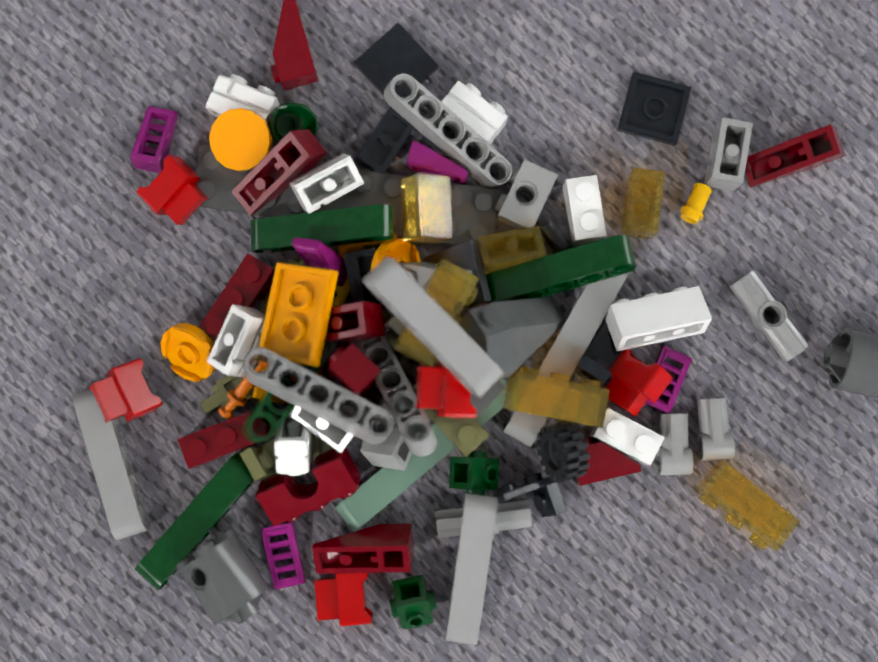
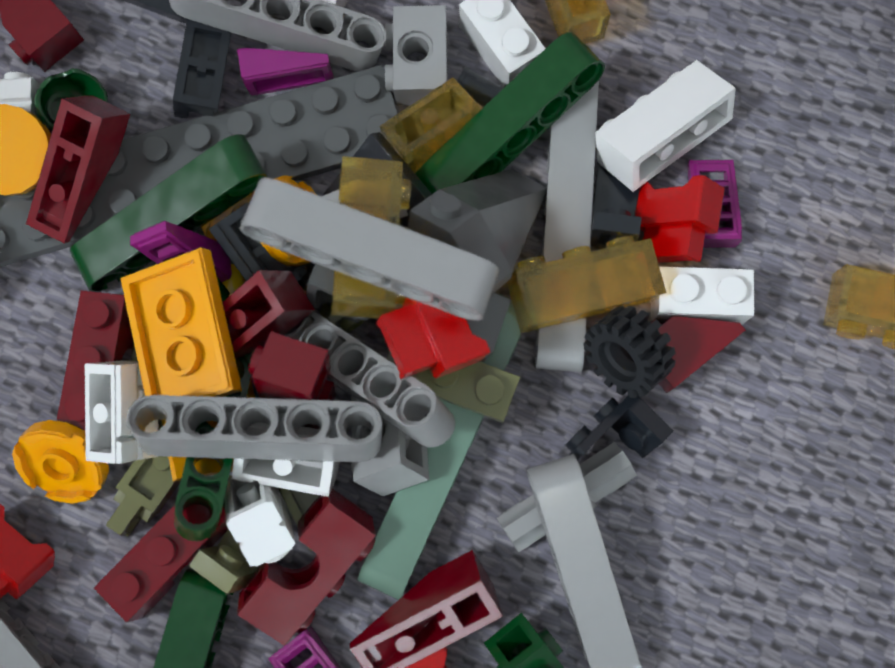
camera: 20 degrees left, 5 degrees down
(237, 396) = (152, 488): orange piece -> none
(326, 183) = (145, 149): white brick -> none
(426, 208) = (294, 122): clear yellow brick -> none
(474, 473) = (523, 439): dark green brick -> none
(674, 452) = (776, 290): light grey piece -> none
(714, 434) = (813, 242): light grey piece -> none
(781, 332) = (827, 69): light grey piece -> none

